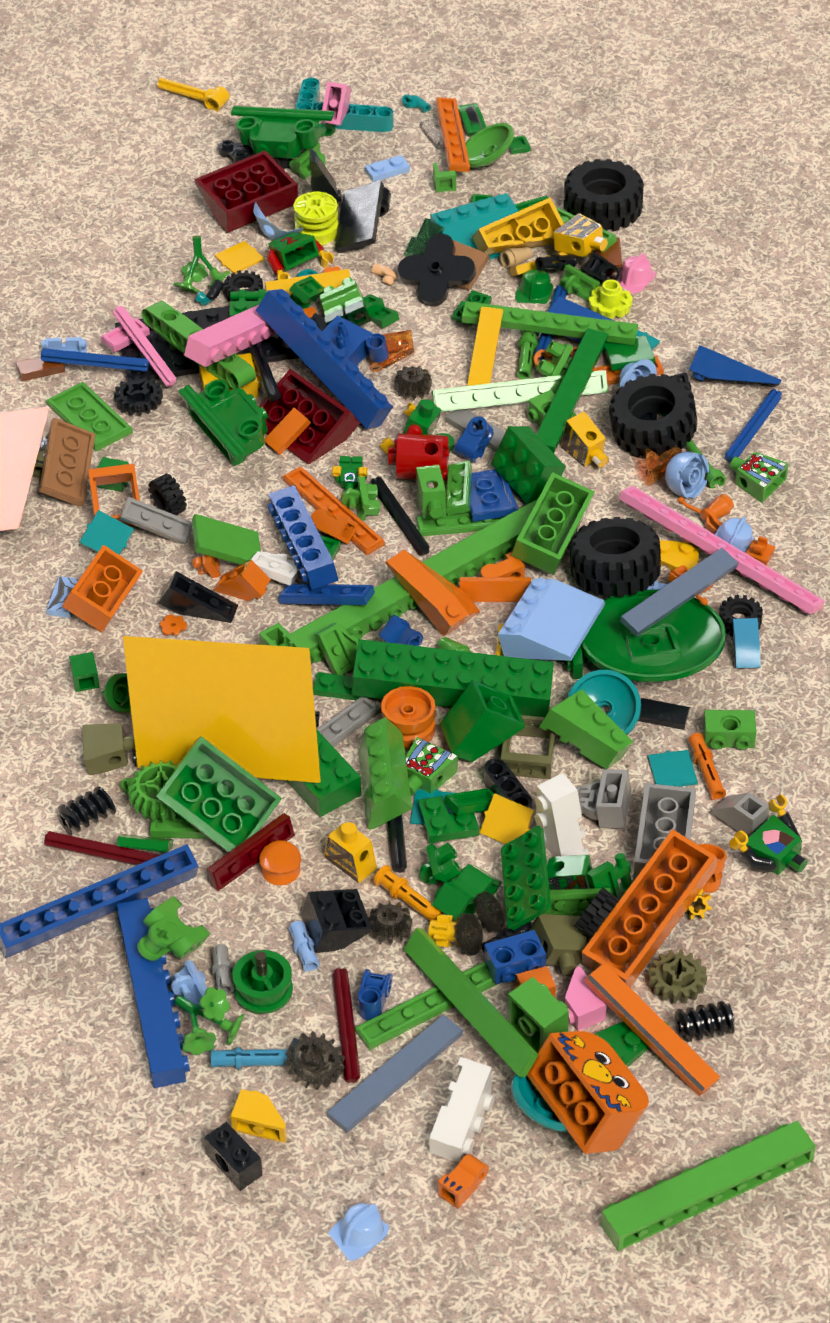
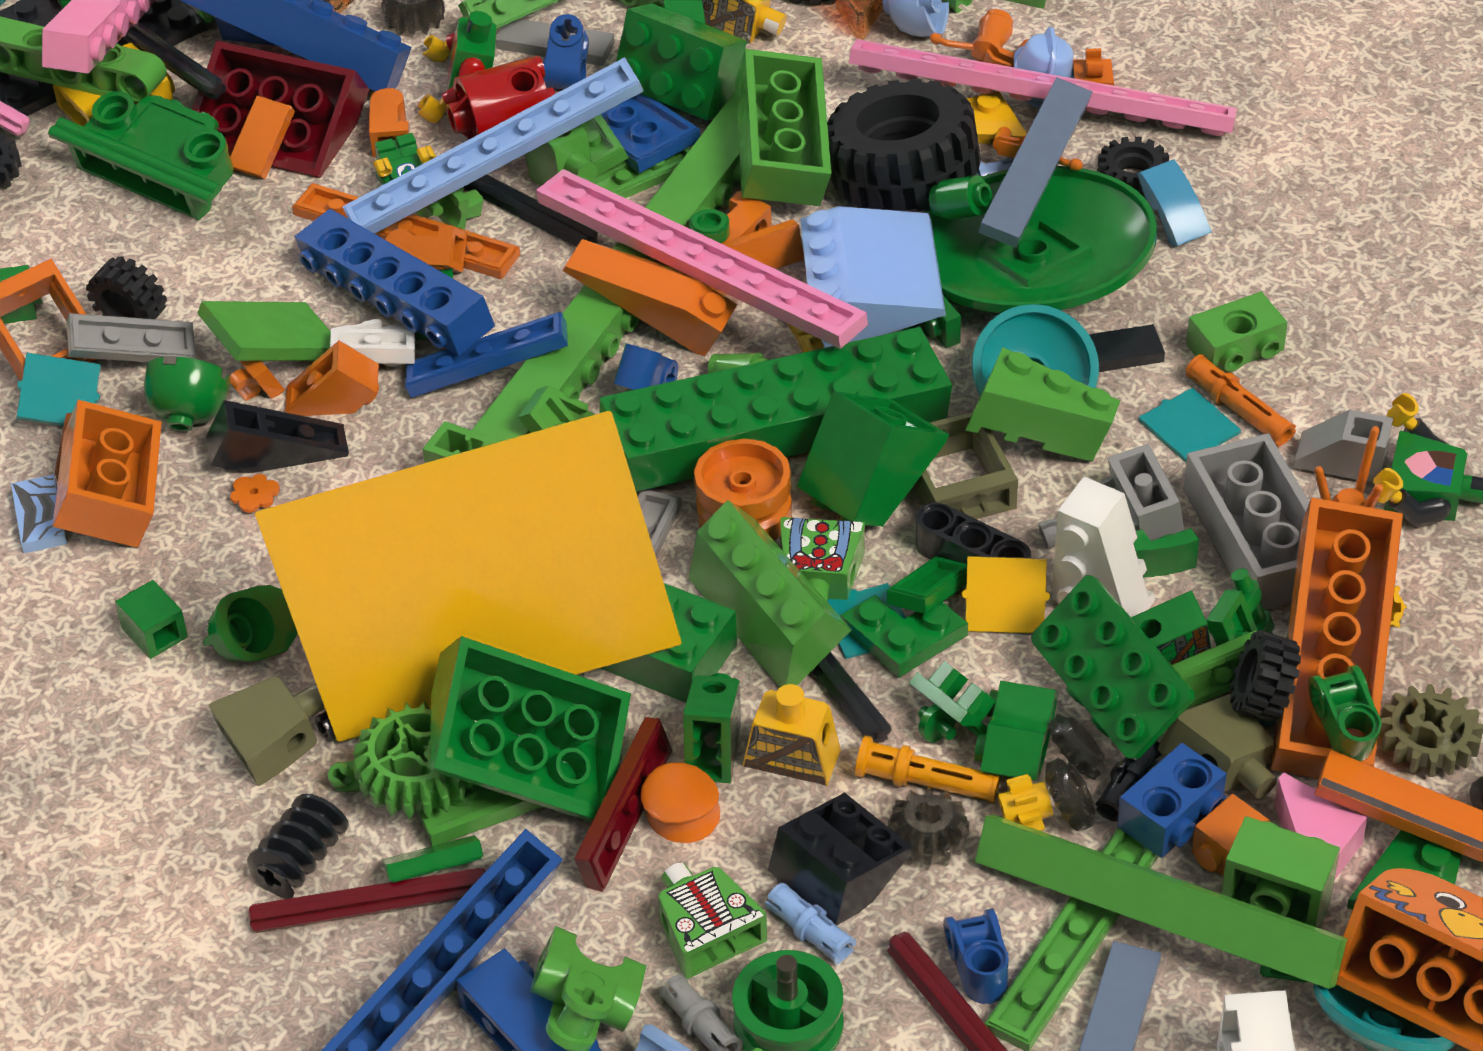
camera: 25 degrees left, 0 degrees up
(165, 559) = (185, 391): none -> green cylinder
(254, 923) = (707, 918): none -> torso
(313, 828) = (712, 706): none -> green torso
(359, 443) = (387, 116): none -> orange leg
(393, 481) = (495, 147): none -> light blue tile
(461, 582) = (703, 259): none -> bright pink plate
(482, 566) = (711, 224): none -> green tile
(601, 833) = (1167, 554): none -> green slope
(622, 942) = (1345, 704): none -> green piece
(623, 597) = (960, 197): none -> green brick
(723, 840) = (1355, 495): none -> orange plant

